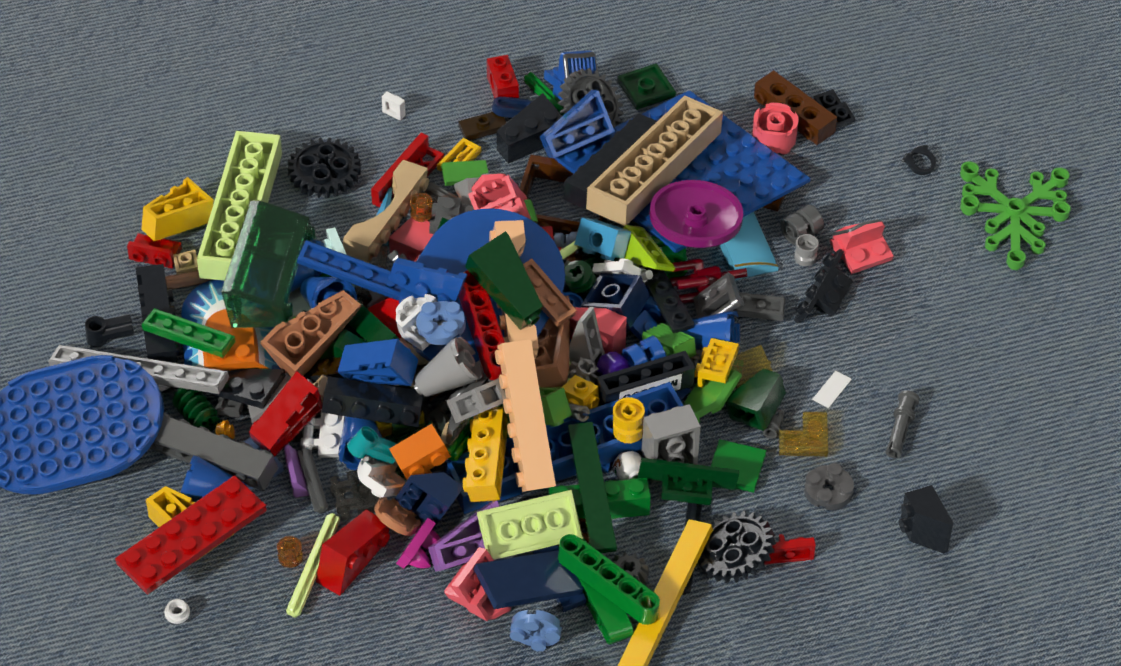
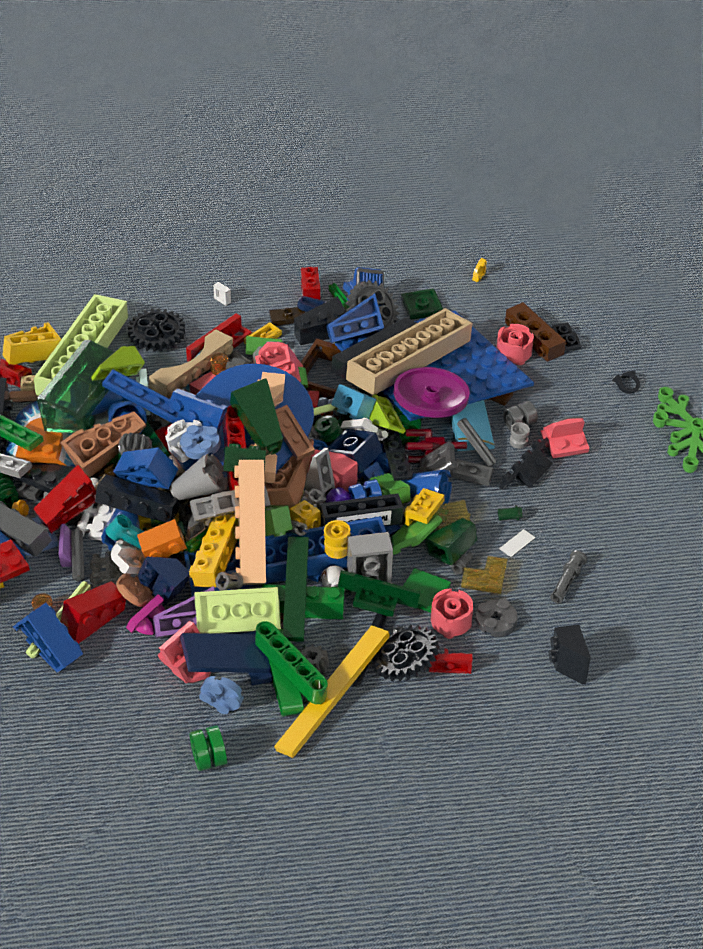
camera: 10 degrees right, 5 degrees down
(310, 224) = (124, 360): none -> lime slope
(314, 589) = (50, 637): none -> blue wedge
(354, 332) = (133, 442): none -> dark grey gear
(490, 335) = (235, 453): none -> dark green bracket
(514, 495) = (228, 578): none -> flat silver bush
(708, 30) = (480, 270): none -> yellow tile
(758, 267) = (477, 442): none -> dark grey axle
(777, 489) = (451, 613): none -> coral brick
(816, 353) = (510, 513): none -> dark green pin

